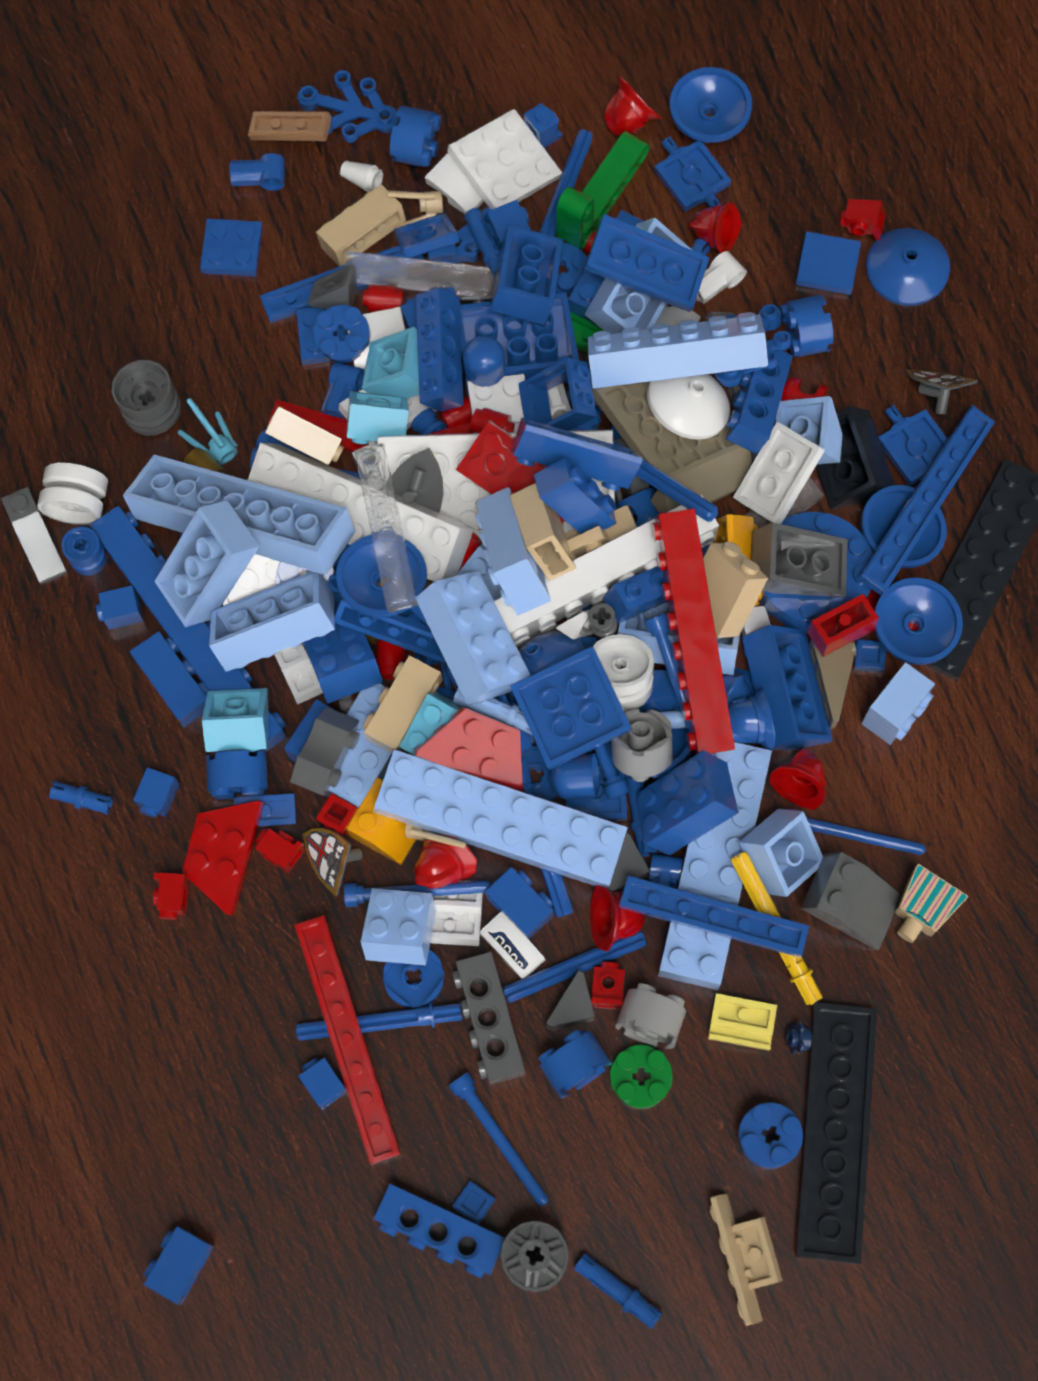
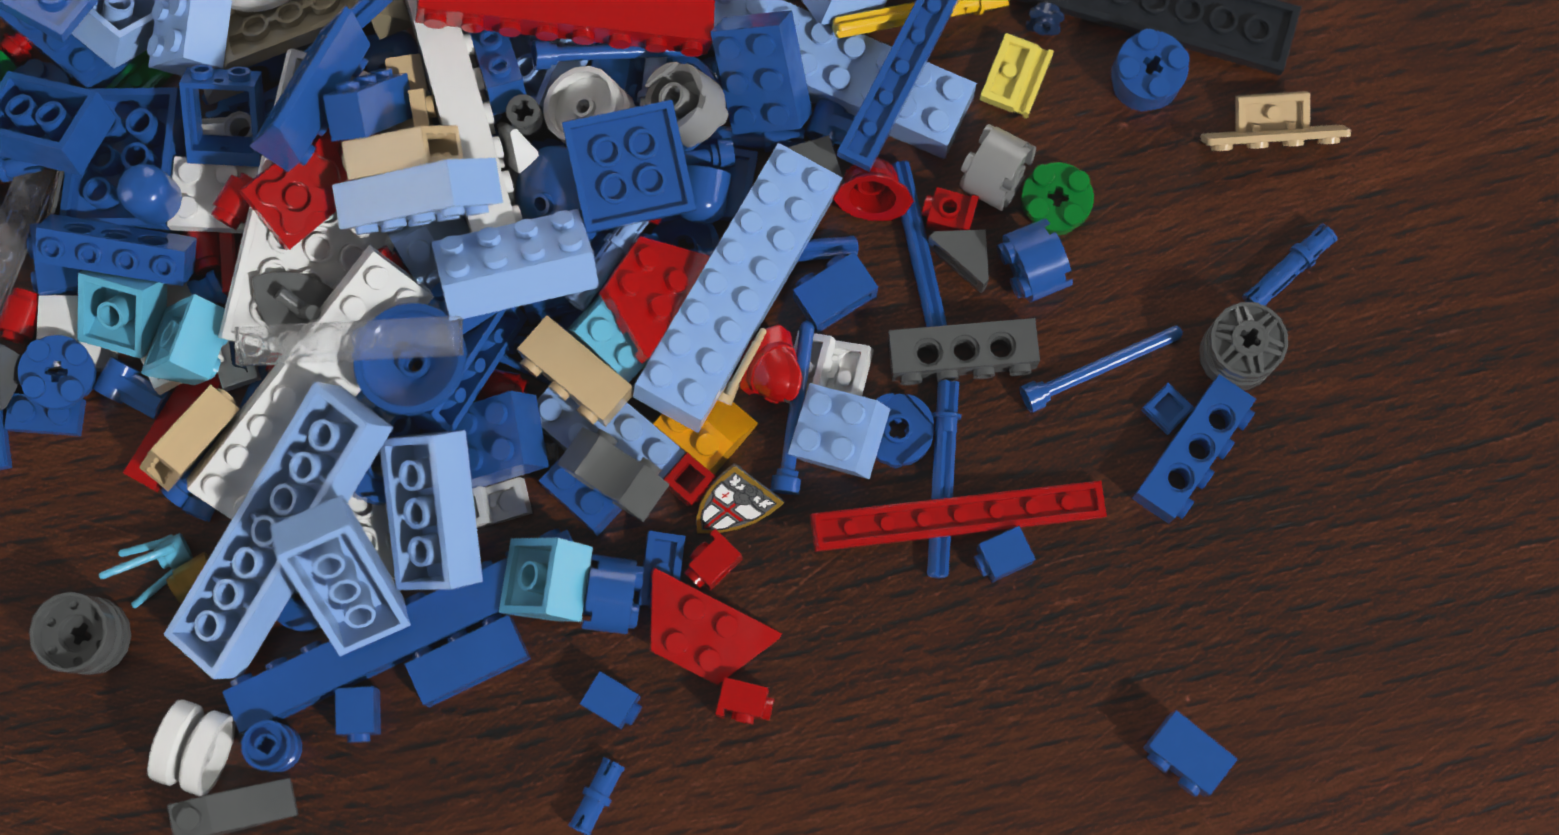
camera: 80 degrees left, 5 degrees up
(512, 945) = (882, 310): white slope -> none

